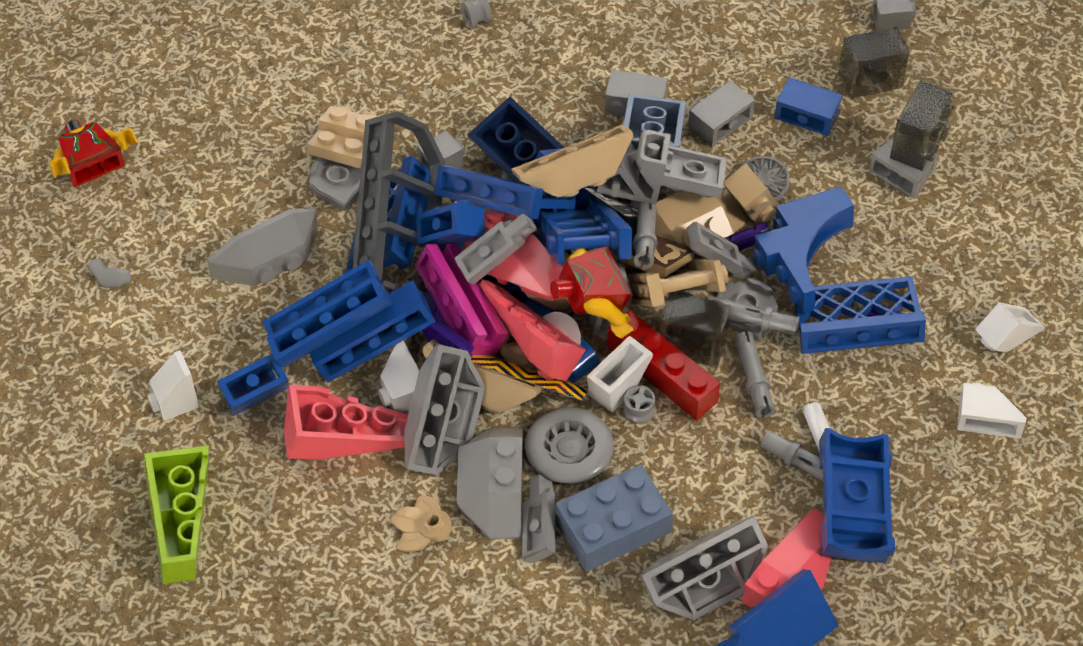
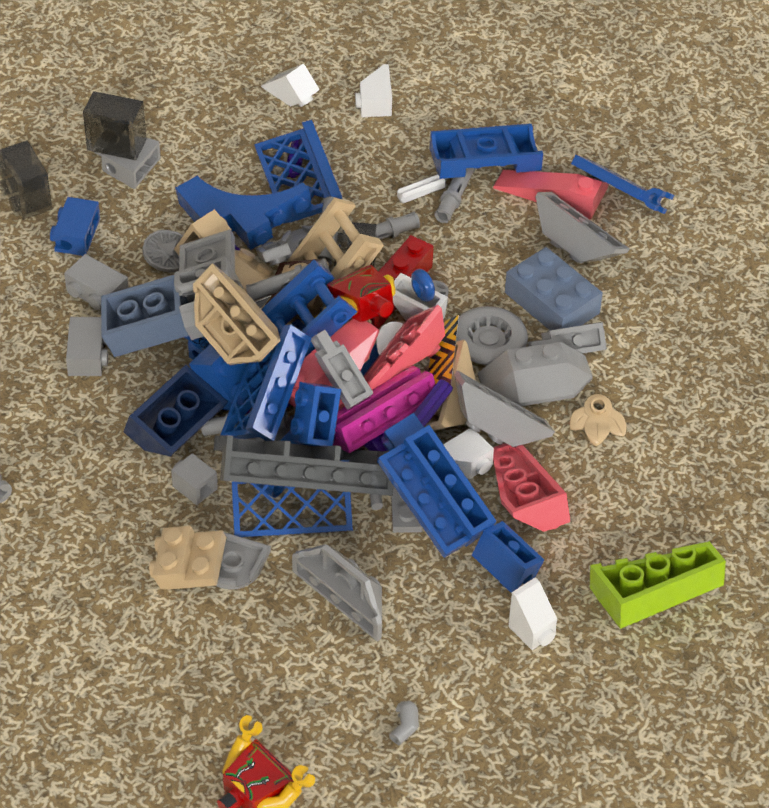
camera: 105 degrees left, 5 degrees down
(619, 362) = (423, 285): none -> blue piece

